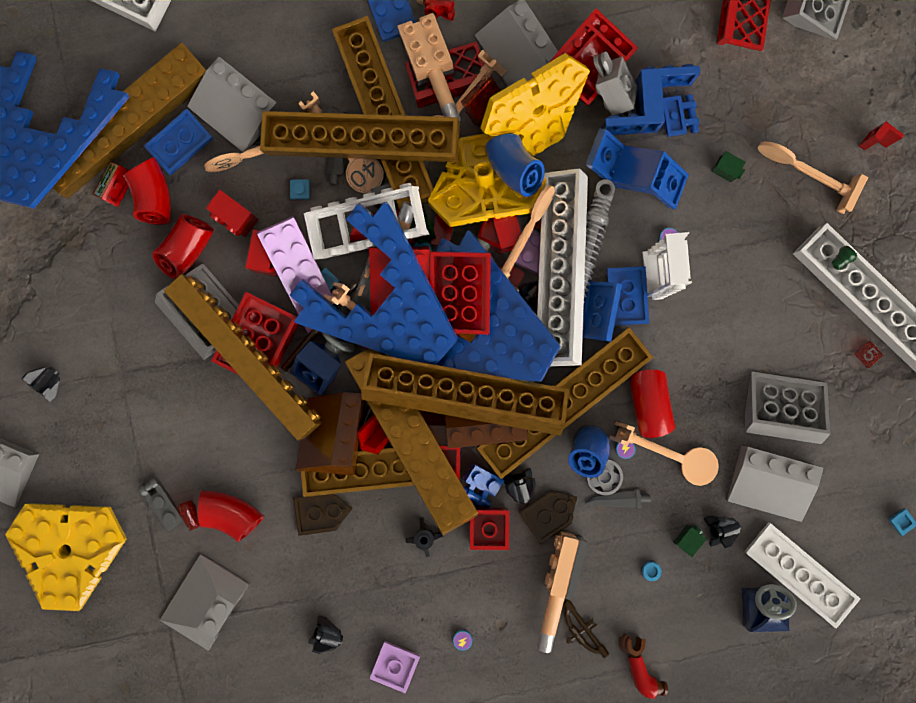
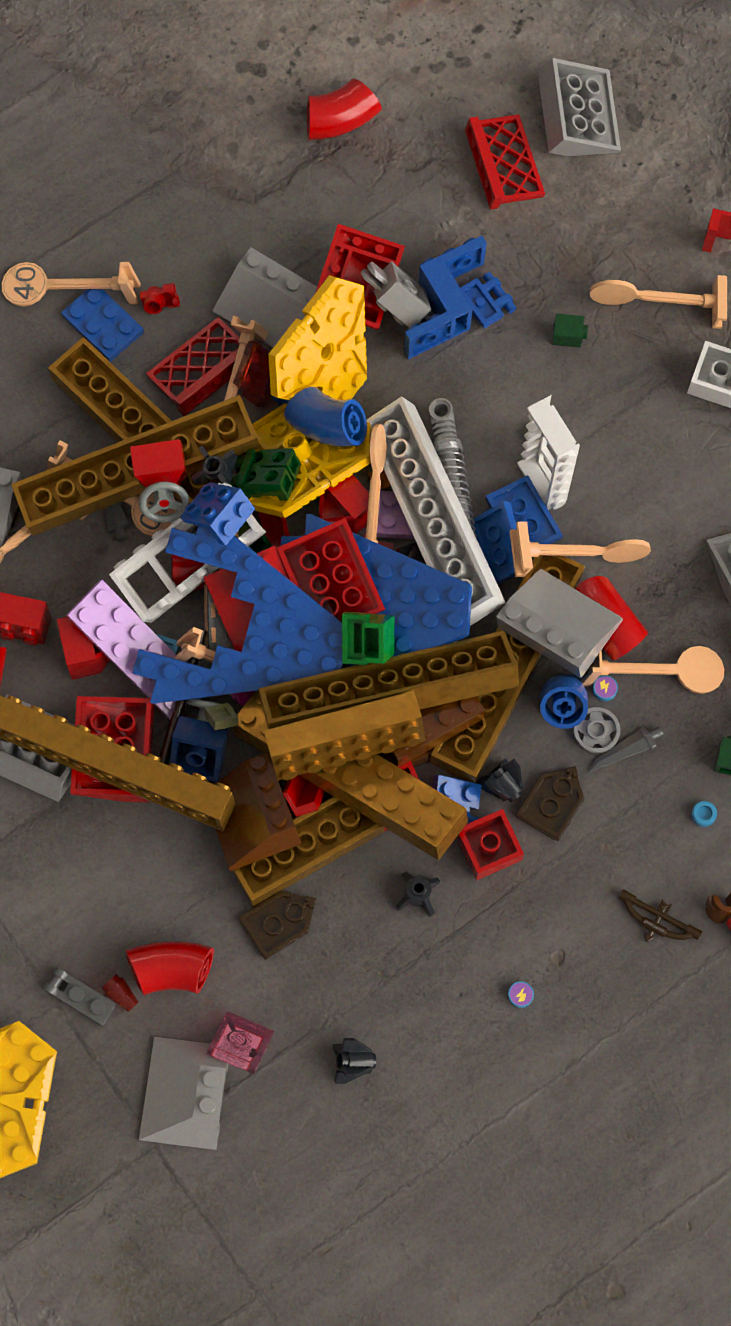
camera: 30 degrees left, 15 degrees down
(254, 588) = (240, 1042): none -> clear pink tile
(300, 189) = (86, 562): dark azure plate -> none
(338, 356) = (221, 716): none -> olive plate
(369, 154) = (161, 471): none -> red piece
(395, 666) = (454, 1062): lavender plate -> none
(396, 207) = (220, 510): none -> blue bracket
(413, 169) = (215, 468): none -> black brick
(414, 419) = (345, 735): none -> pearl gold brick
(429, 59) = (173, 353): light nougat piece -> none
(451, 185) = (266, 473): none -> dark green hips
(465, 352) = (367, 638): none -> green plate
(561, 583) = (603, 867): light nougat piece -> none
(614, 328) = (524, 550): none -> light nougat piece
(614, 394) = (558, 622): none -> light grey slope
(637, 168) = (467, 372): blue bracket -> none

